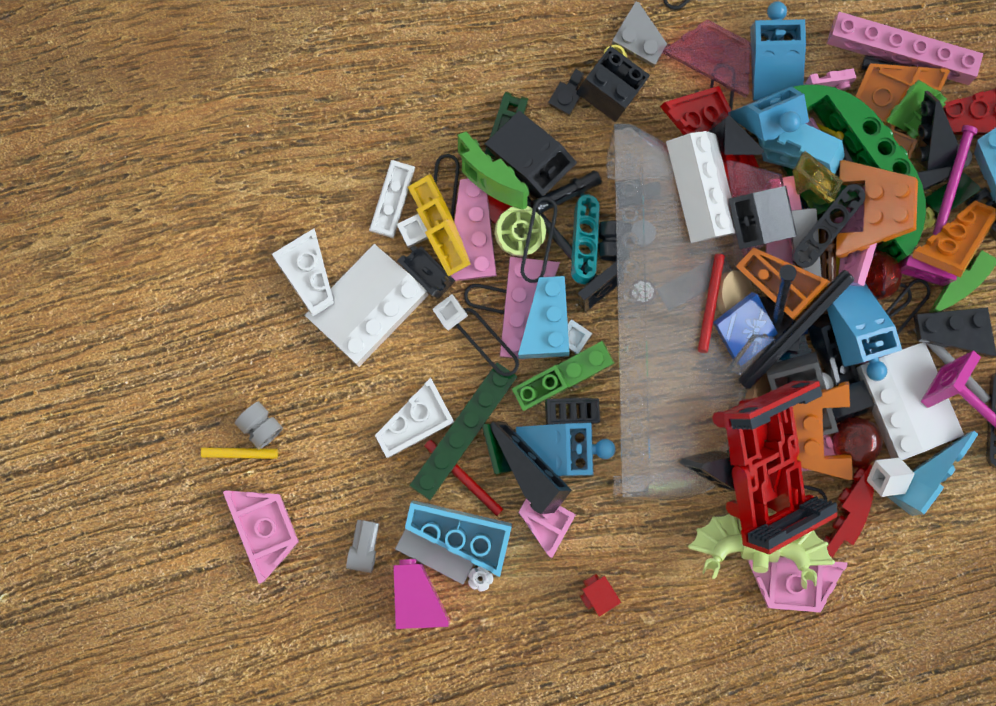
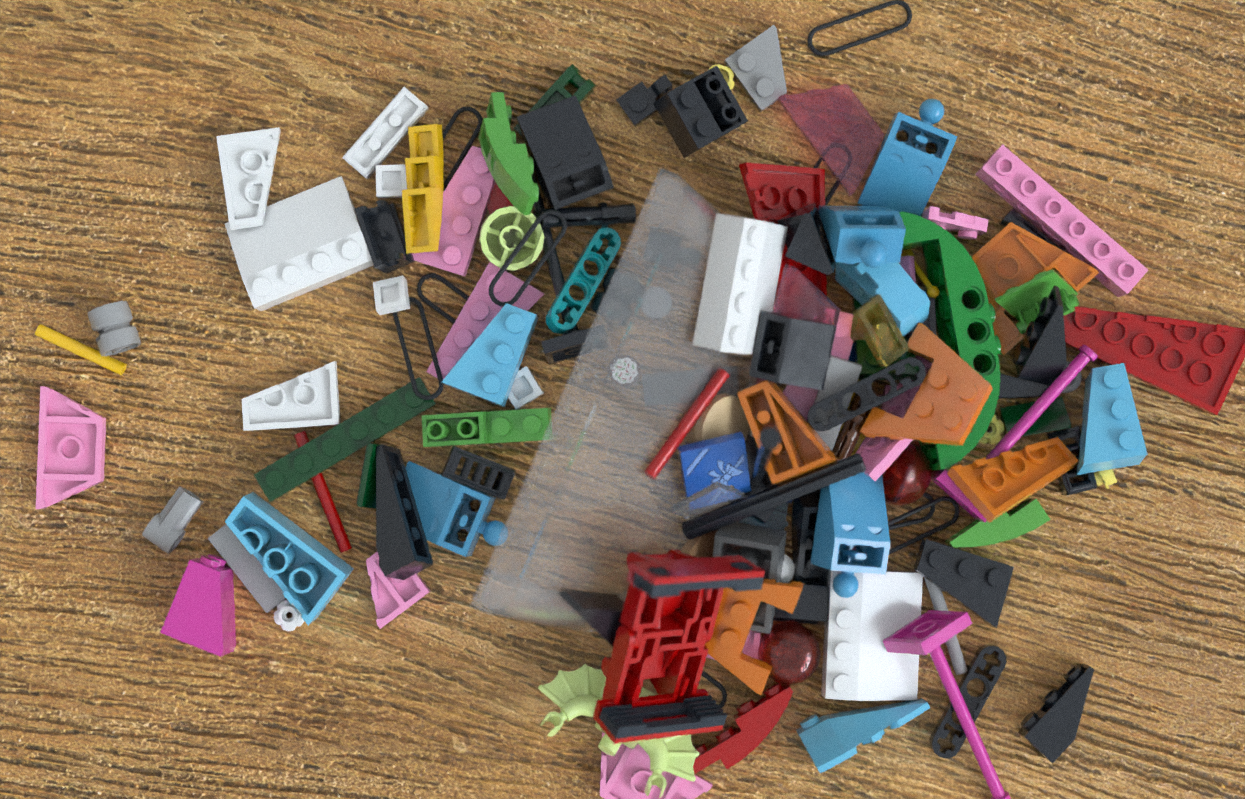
camera: 20 degrees right, 5 degrees up
(599, 595) = (412, 695): red brick -> none
(890, 477) = (803, 712): white brick -> none

